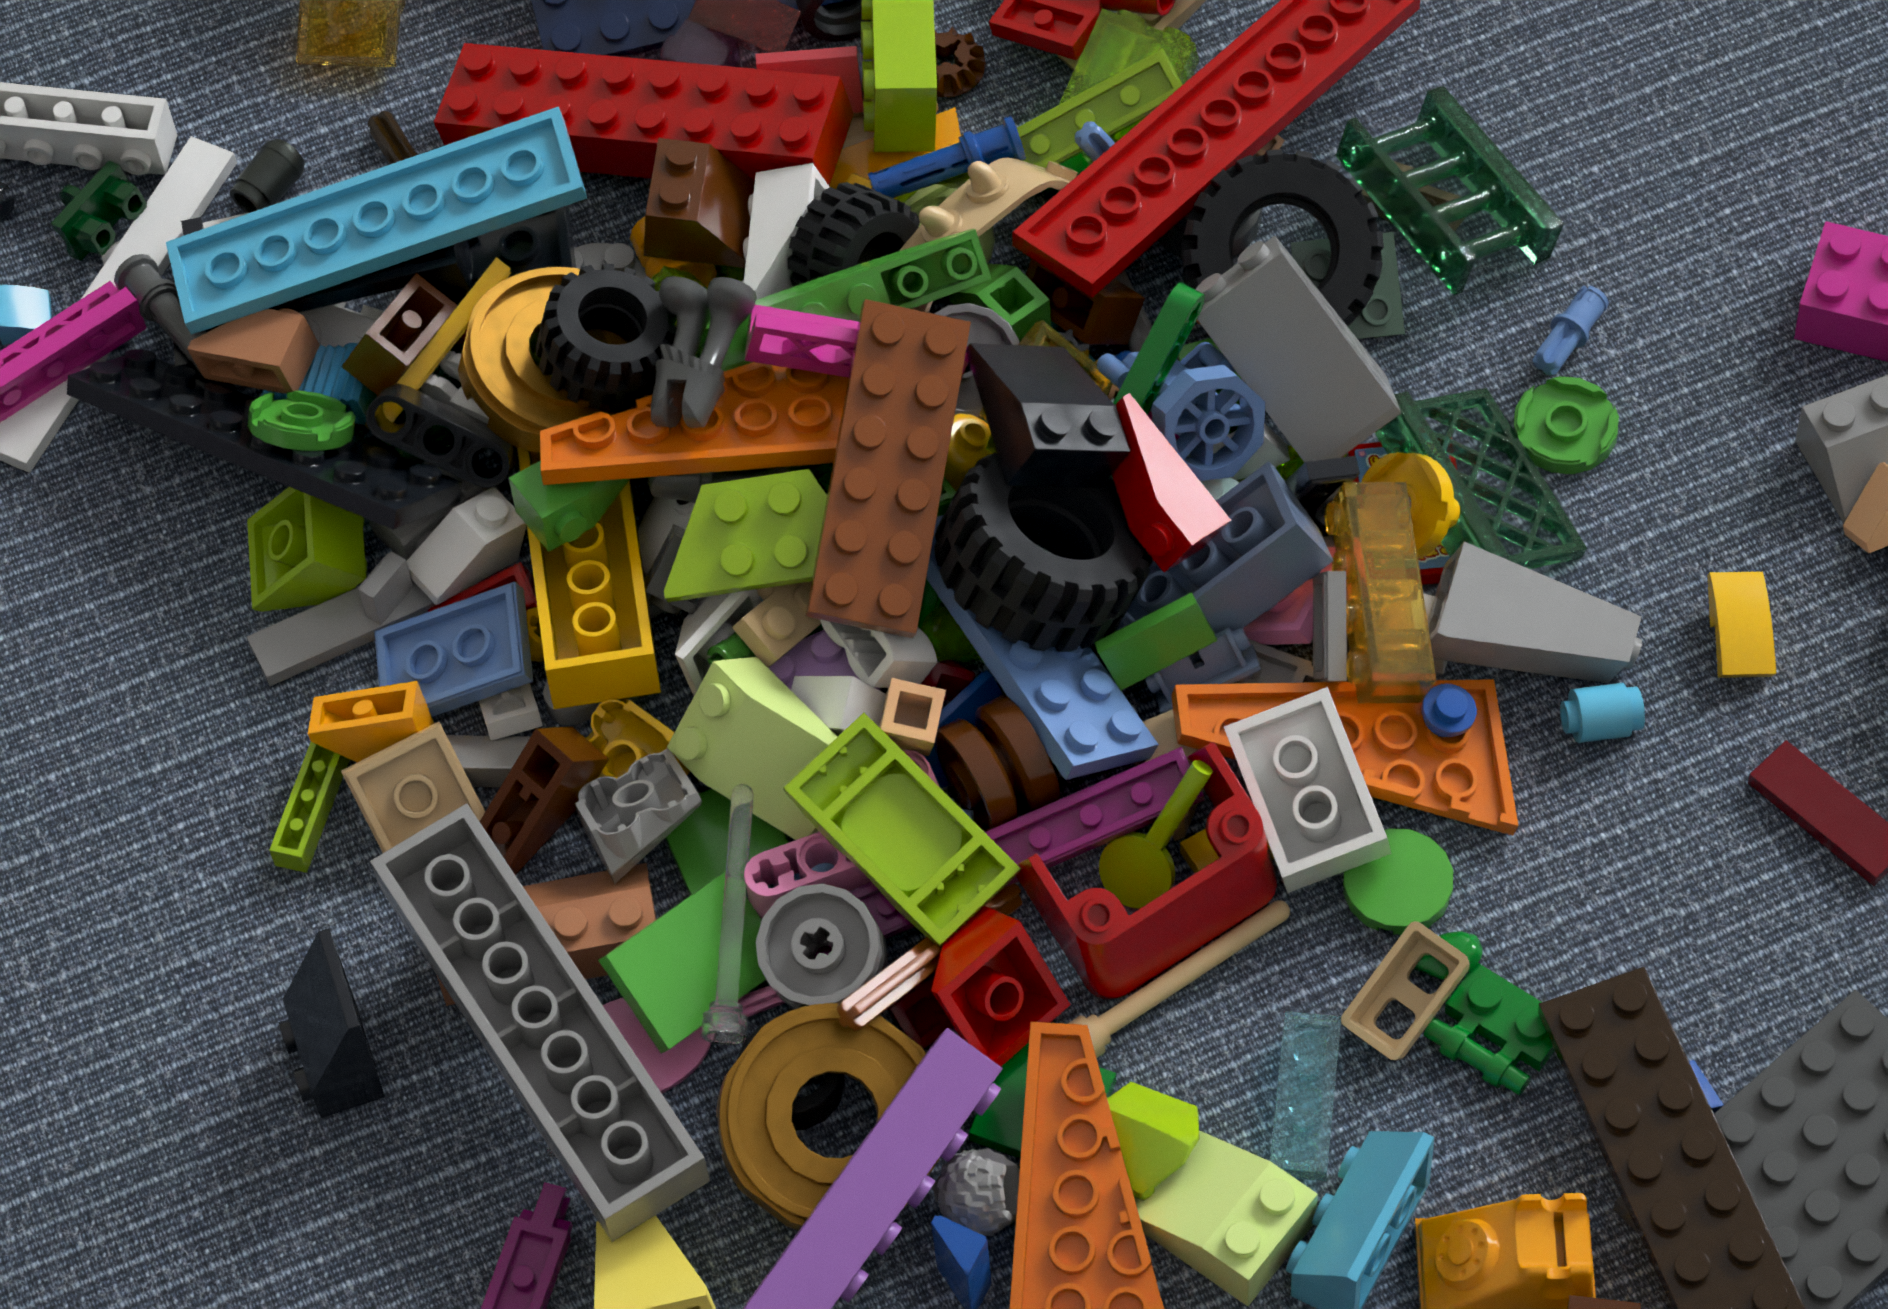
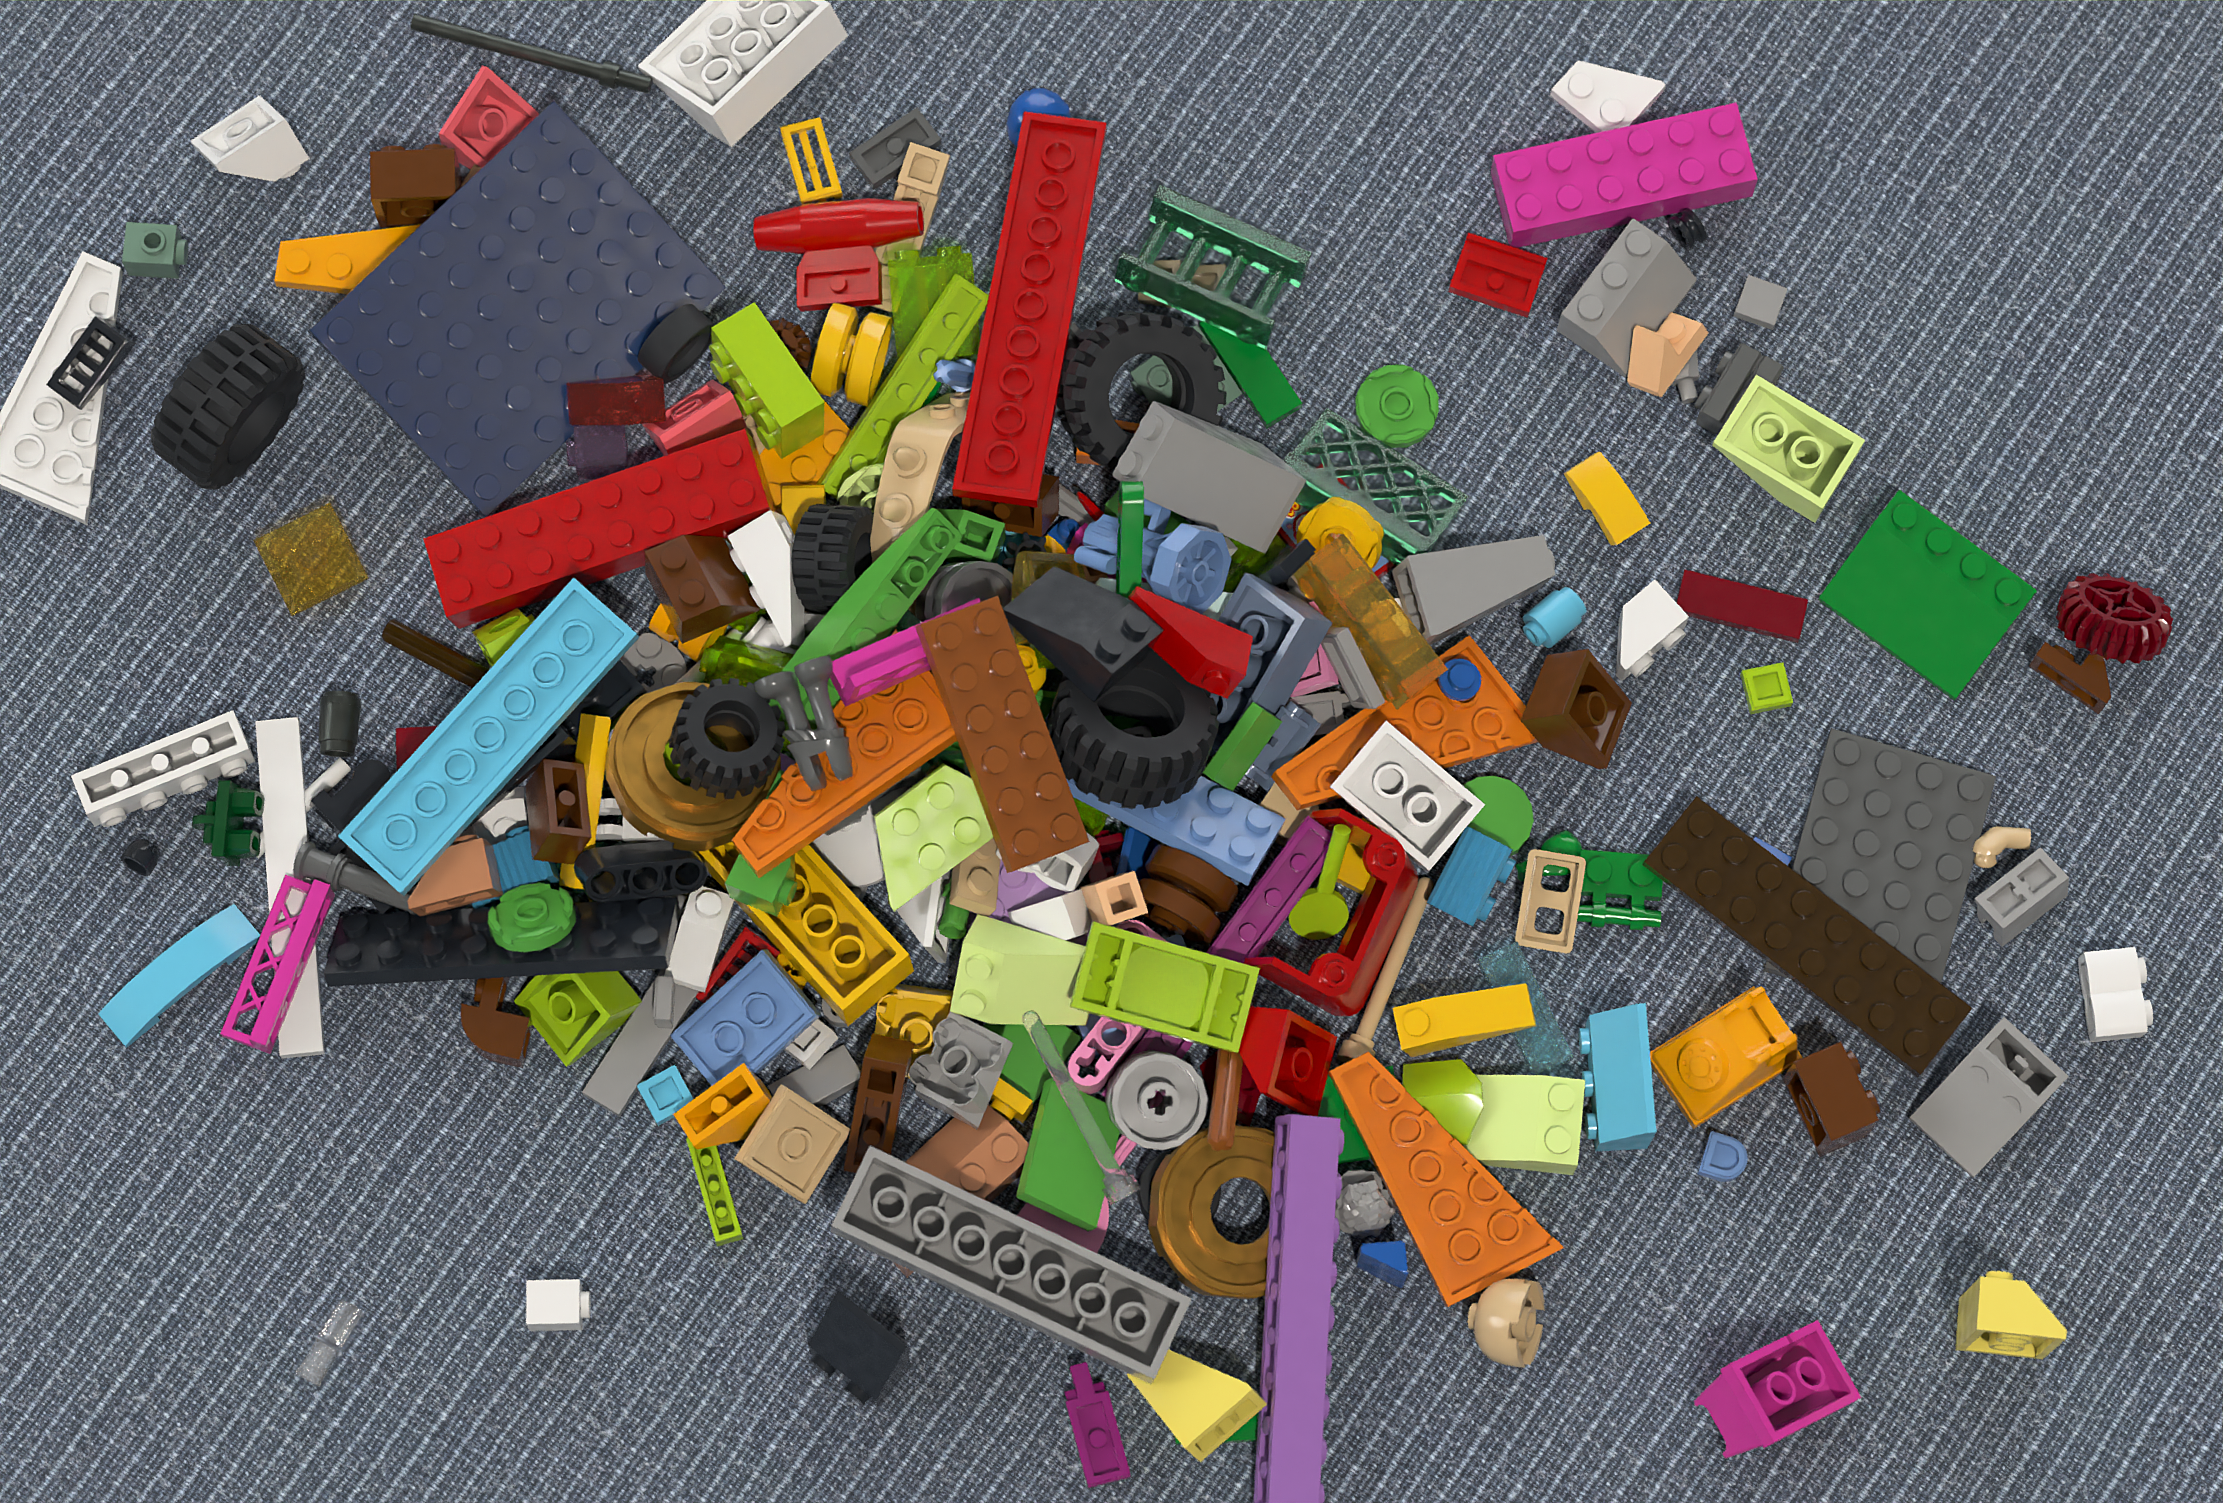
camera: 40 degrees left, 15 degrees up
(65, 823) = (556, 1305): none -> white brick
(205, 527) = (494, 1033): none -> reddish brown brick
(324, 677) = (665, 1094): none -> medium azure plate
(660, 571) = (866, 876): dark grey bracket -> none
(670, 878) = (1010, 1102): none -> yellow plate
(949, 161) = (866, 432): blue pin -> none
(1007, 76) = (844, 352): none -> yellow wheel
(1220, 1059) = (1463, 1018): none -> yellow slope
(1333, 921) = (1471, 876): none -> dark azure brick
(1429, 321) = (1254, 375): none -> green tile
(1566, 812) = (1576, 708): none -> reddish brown slope
(1570, 329) = (1358, 331): medium blue axle -> none
(1701, 775) = (1646, 626): none -> white slope
(1760, 350) = (1497, 275): none -> red plate
(1806, 912) = (1766, 688): none -> lime tile

